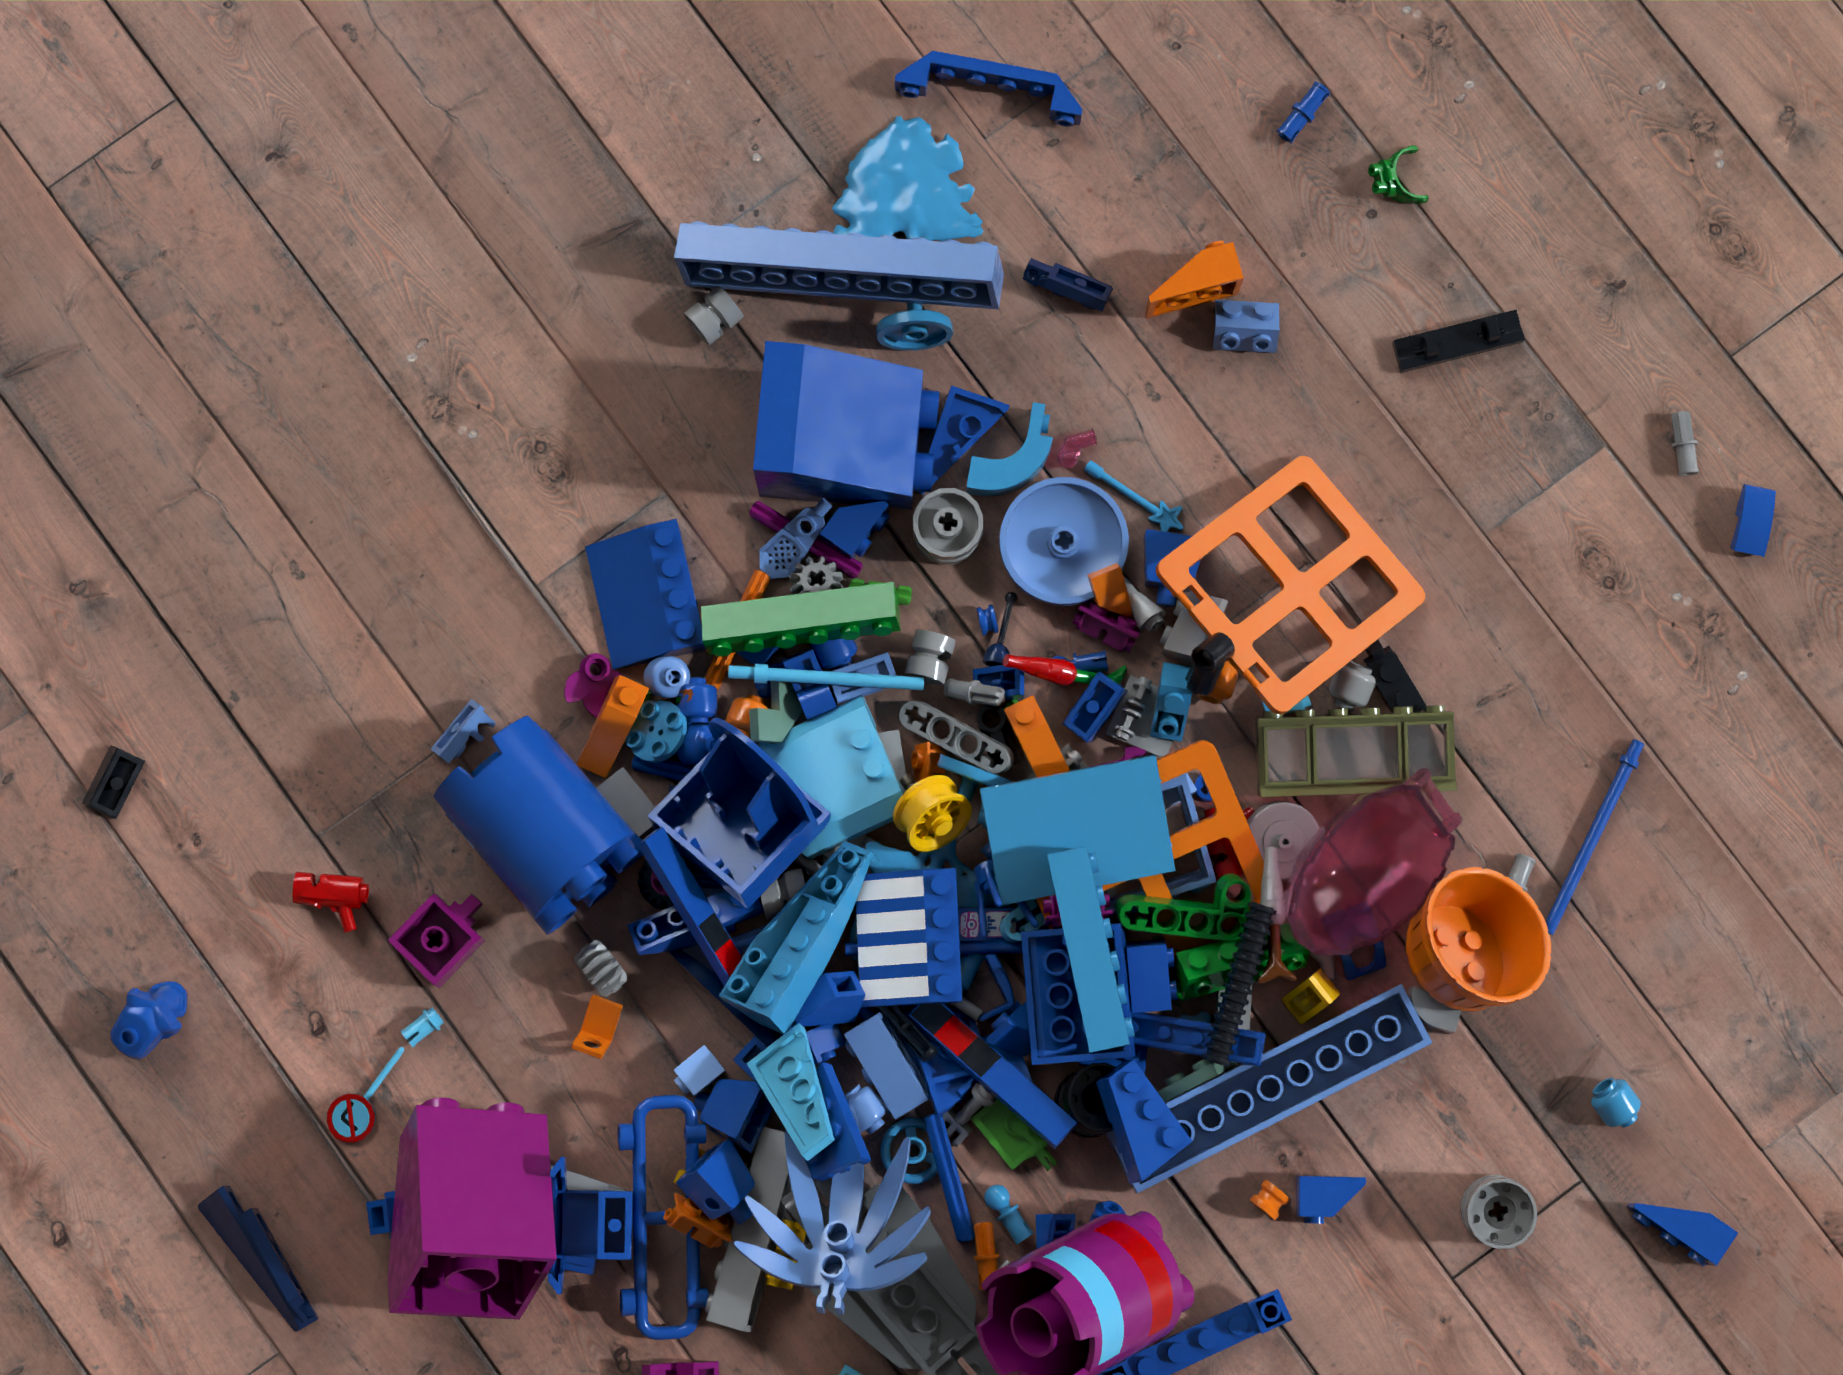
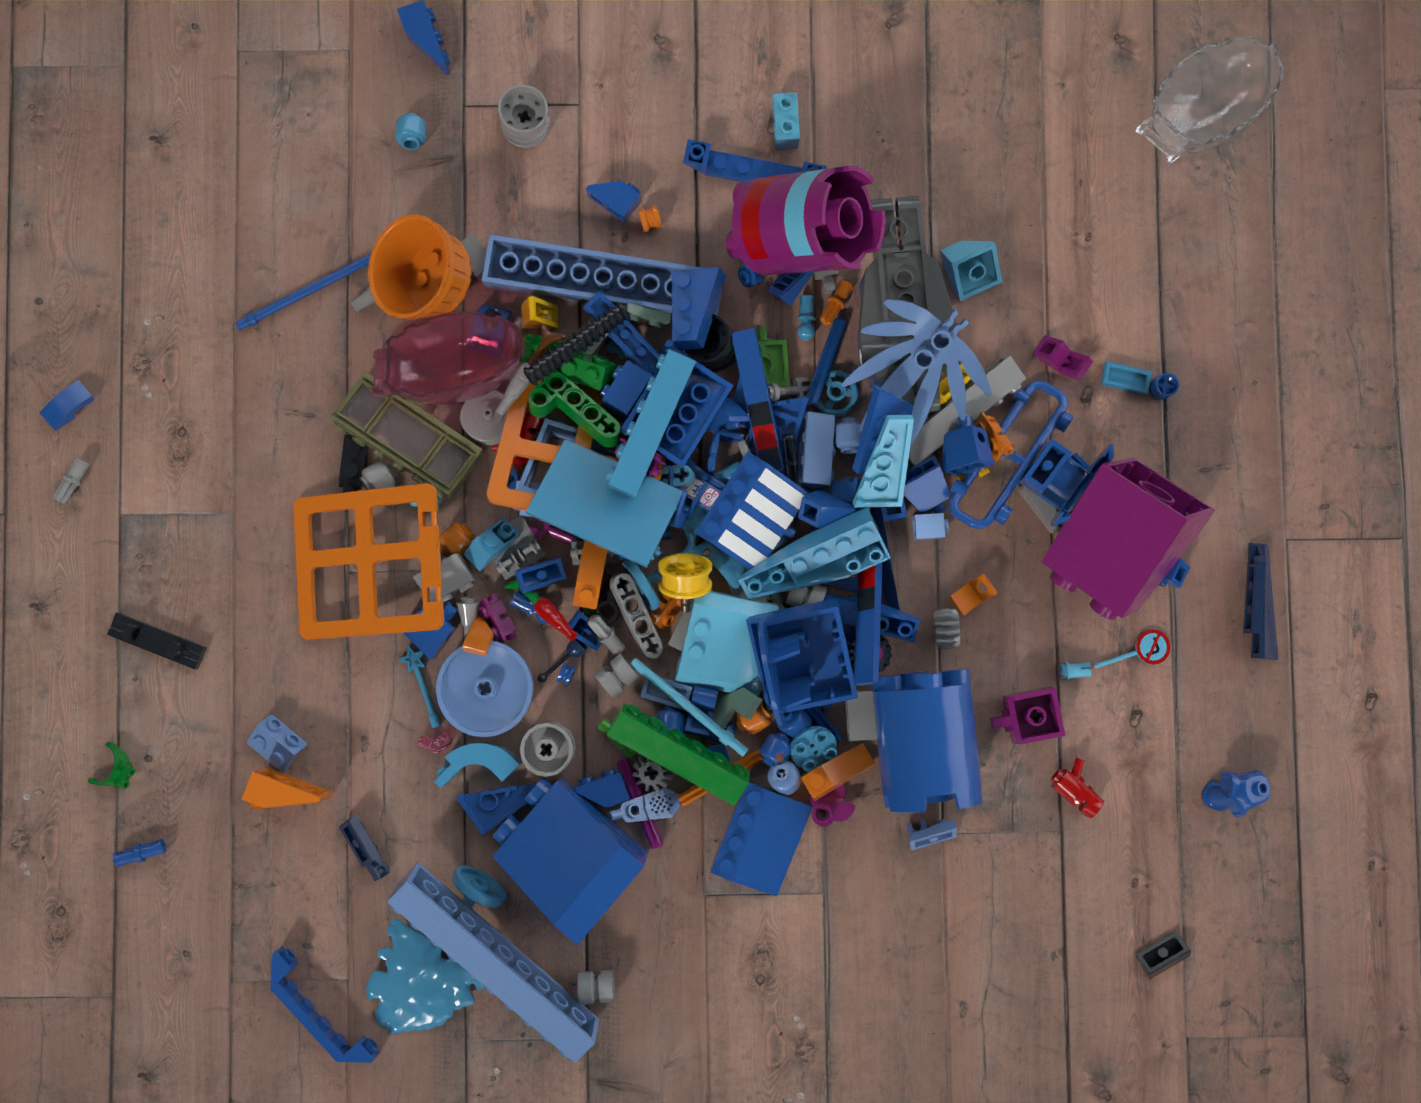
camera: 145 degrees left, 5 degrees up
(1208, 663) = (452, 546): black piece -> none

